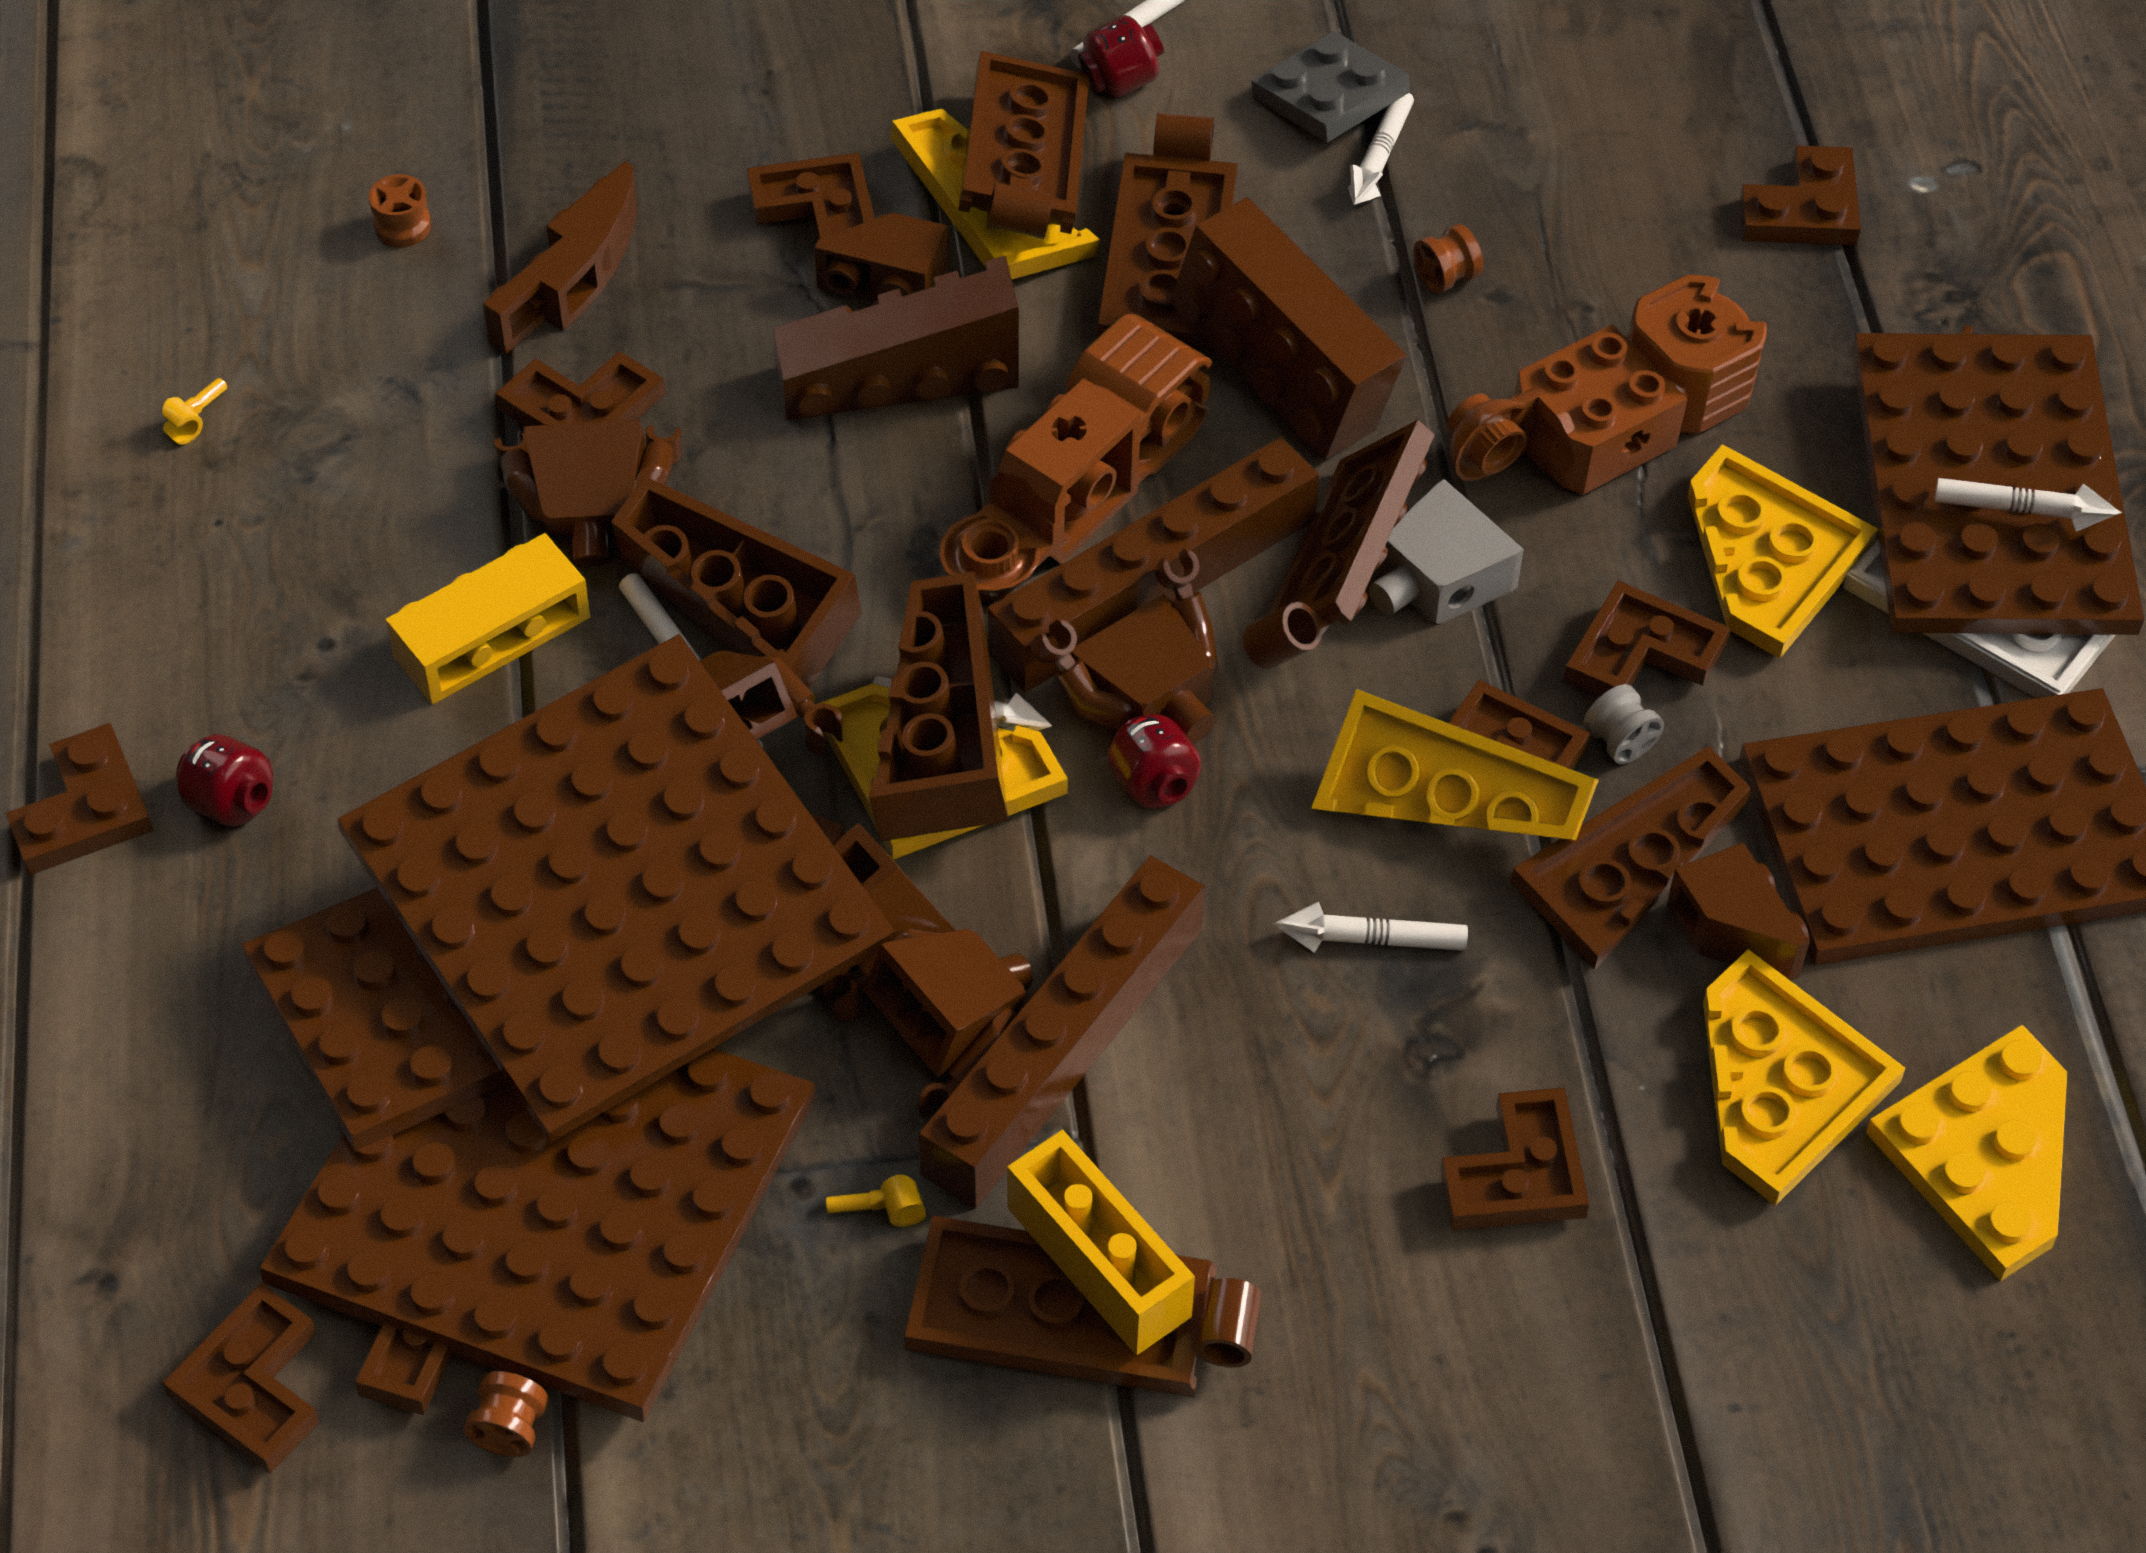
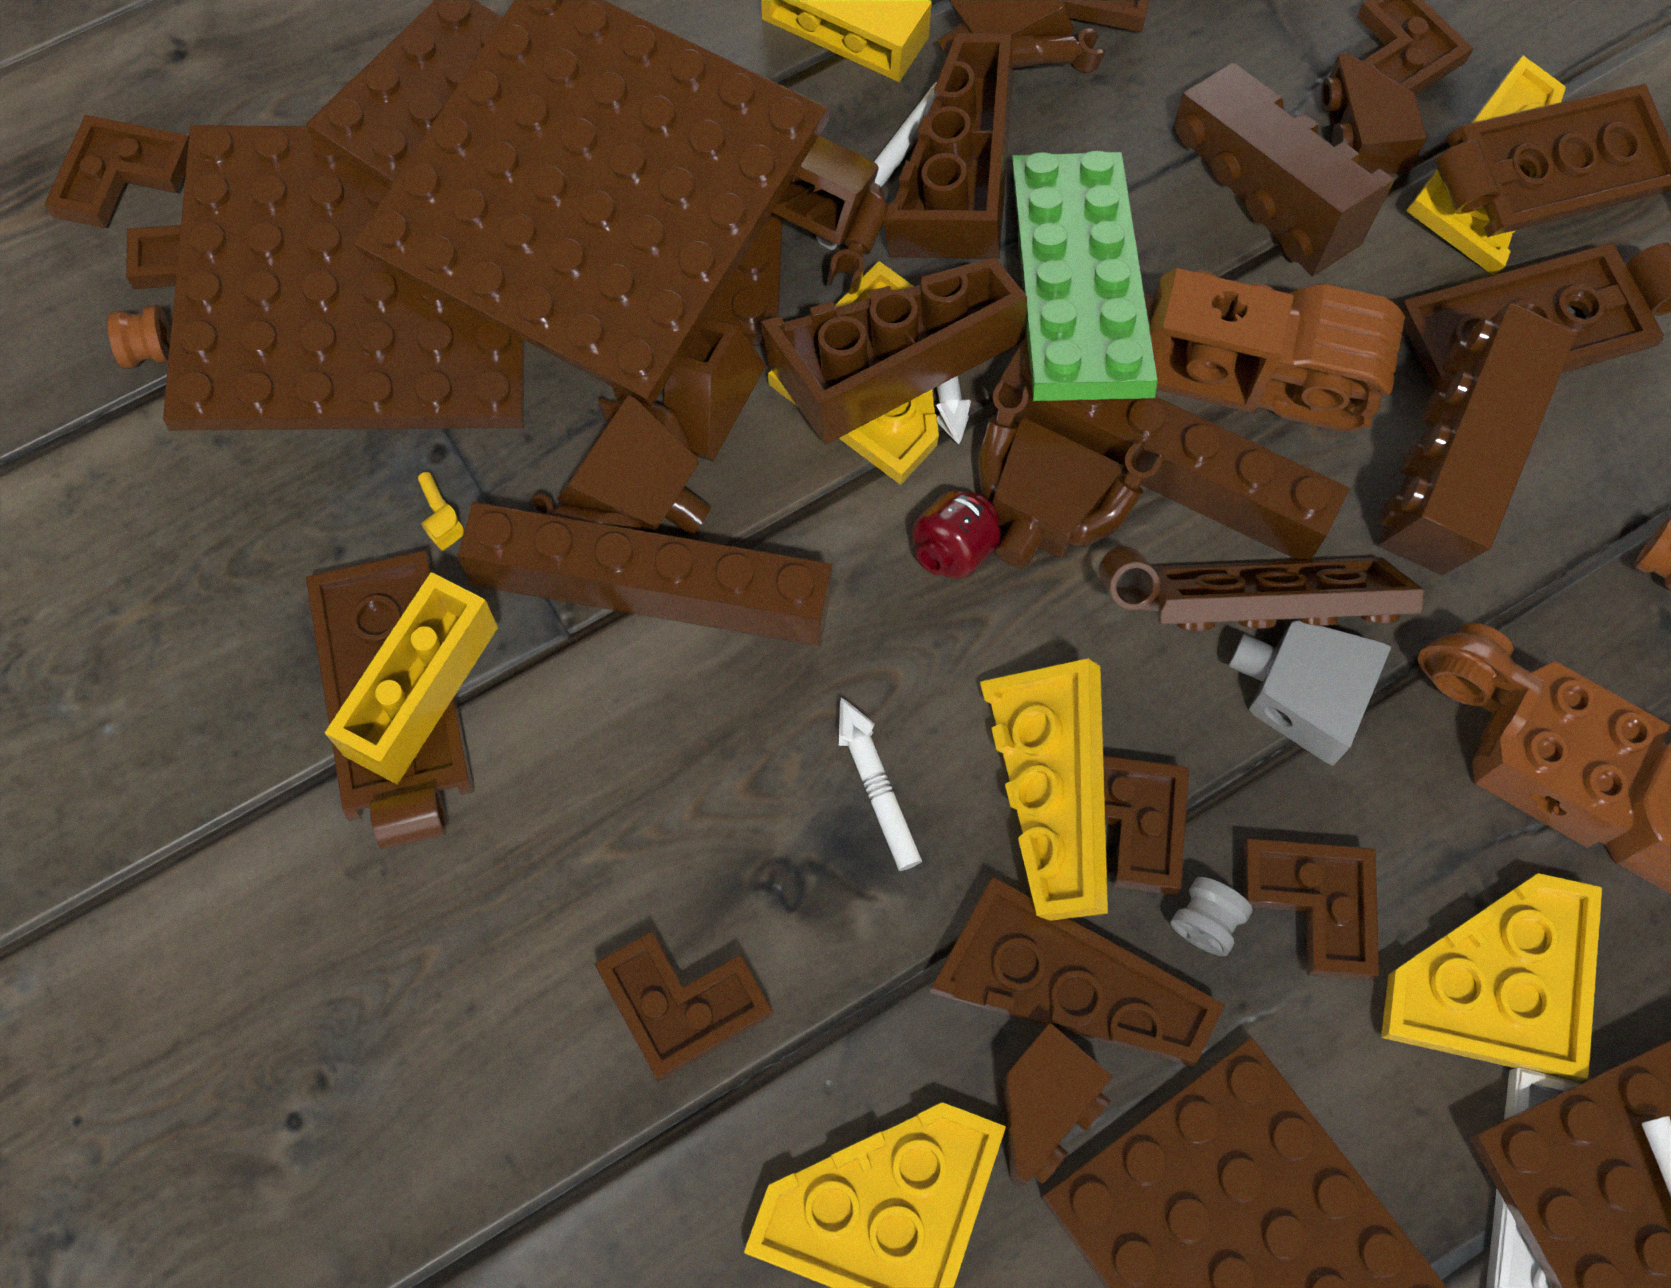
camera: 65 degrees right, 15 degrees up
(904, 530) = (1081, 278): none -> bright green plate

